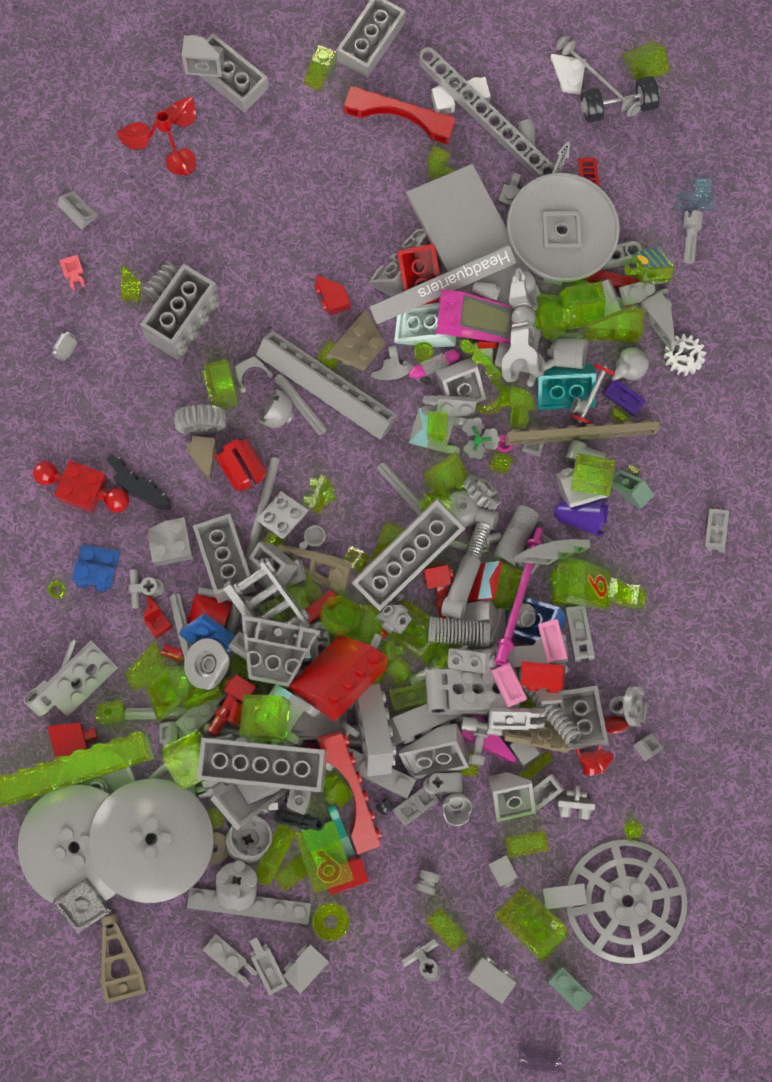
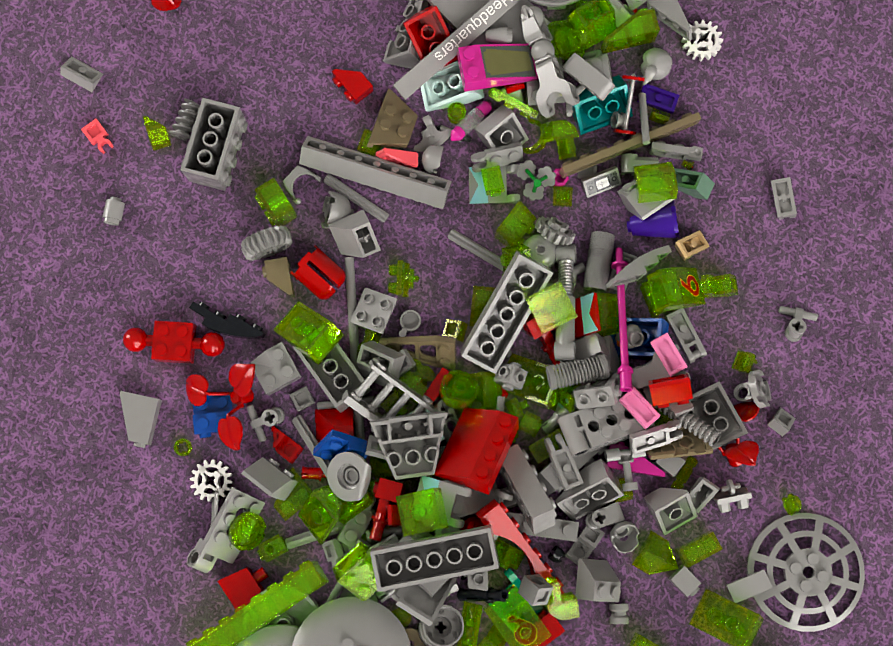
camera: 15 degrees left, 5 degrees up
(25, 548) = (140, 417): none -> light grey slope
(80, 627) = (204, 486): none -> white gear
(91, 688) = (247, 531): none -> clear neon green tile
(131, 644) = (271, 478): none -> light grey slope
(132, 537) = (241, 378): none -> red plant
(186, 579) = (302, 398): none -> light grey tile
(212, 515) = (309, 332): none -> clear neon green slope
(286, 438) = (354, 235): none -> light grey slope
(351, 829) = (535, 590): none -> light grey brick
(354, 377) = (400, 157): none -> coral slope
(371, 854) = (563, 605): none -> clear neon green brick
(385, 388) = (431, 158): none -> light grey hair
(415, 843) = (597, 581): none -> light grey slope
(418, 716) = (563, 463): none -> light grey hinge
(452, 561) = (551, 307): none -> clear neon green tile
(481, 838) = (655, 555): none -> clear neon green slope
(543, 460) = (601, 181): none -> tile
(559, 354) = (588, 76): none -> light grey beam
(603, 411) = (644, 118): none -> light grey bar
(612, 547) = (691, 245): none -> tan slope
(625, 453) = (675, 151): none -> light grey hinge
(628, 676) = (744, 361): none -> clear neon green tile
(693, 654) = (797, 322): none -> light grey piece

